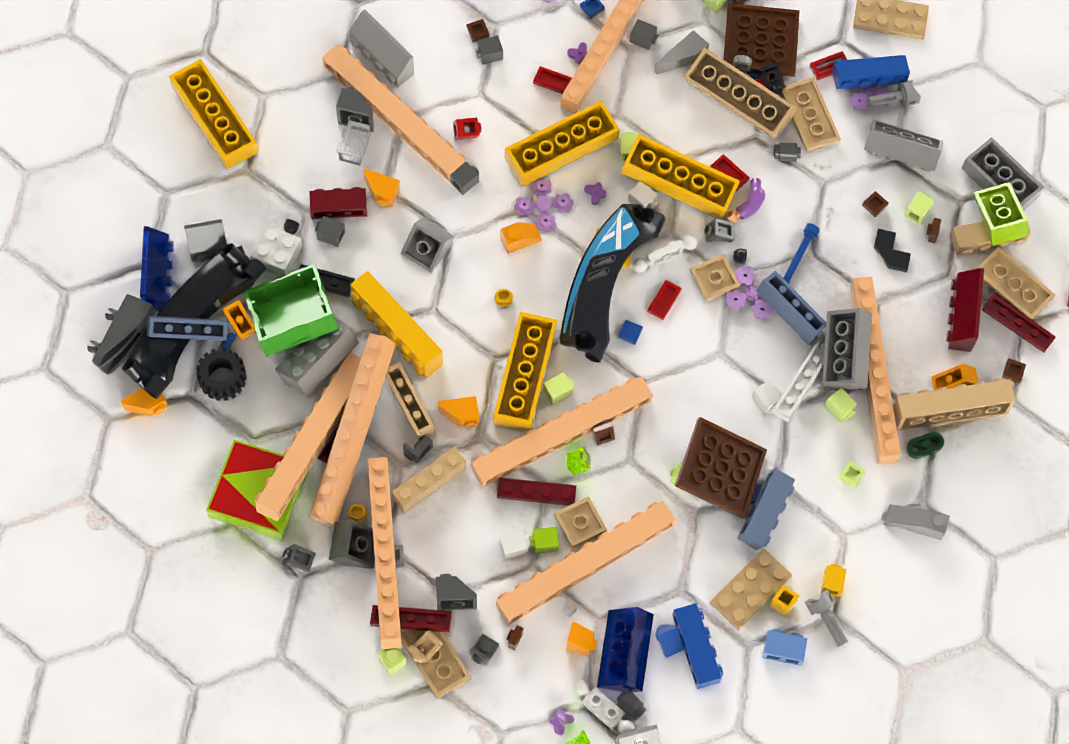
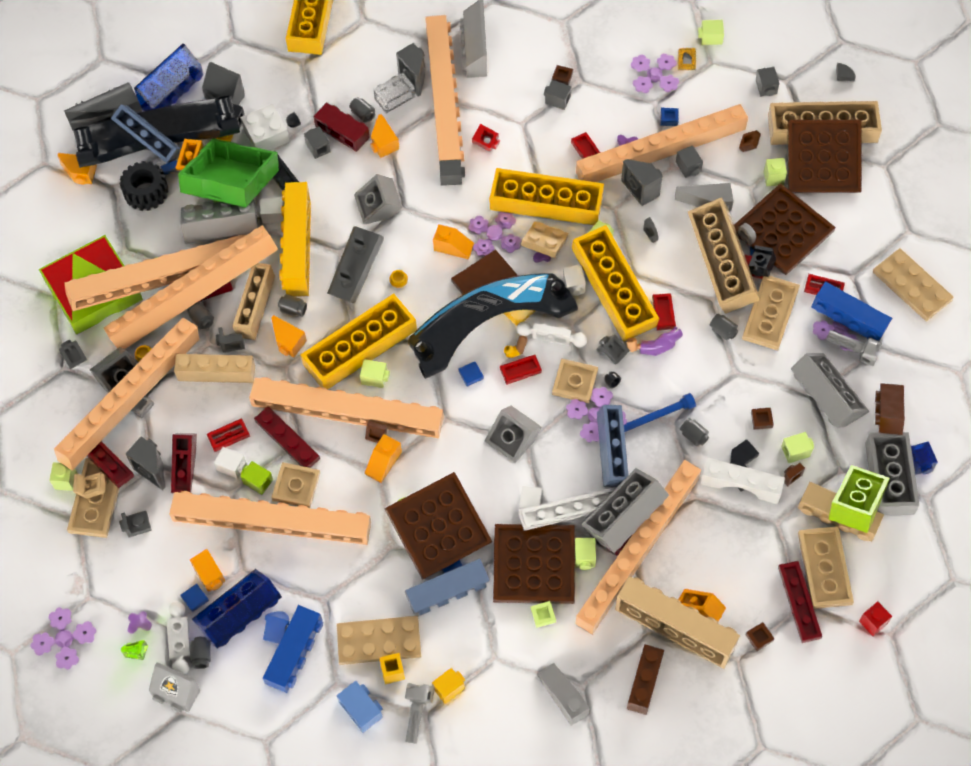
camera: 45 degrees right, 5 degrees down
(341, 176) = (362, 109): none -> dark grey brick
(349, 315) = (270, 210): none -> white brick
(375, 447) = (200, 315): none -> dark grey brick
(441, 382) = (292, 305): none -> dark grey brick
(463, 310) = (355, 264): none -> dark grey piece
(476, 572) = (183, 461): none -> dark red slope
(481, 539) = (241, 434): none -> red tile
(514, 637) = (165, 532): reddish brown plate -> none
(568, 245) = (484, 271): none -> reddish brown tile
(578, 461) = (338, 439): clear neon green slope -> none
(584, 669) = (194, 597): none -> blue tile
(590, 180) = (544, 239): none -> tan plate
(624, 76) = (641, 180): none -> dark grey slope
(628, 449) = (383, 458): none -> light orange slope
(648, 286) = (518, 349): none -> arm
(663, 113) = (650, 230): none -> dark grey tile
(706, 354) = (512, 433): none -> light grey slope
(812, 442) = (534, 564): none -> reddish brown plate
(837, 251) = (694, 432): none -> dark grey brick
(889, 267) = (724, 474): none -> white arch
(924, 446) = (627, 636): dark green plate -> none
(963, 127) = (890, 409): none -> reddish brown brick
(965, 464) = (645, 679): none -> reddish brown brick
(966, 310) = (759, 556): dark red slope -> none
(1014, 147) = (923, 458): none -> clear blue brick

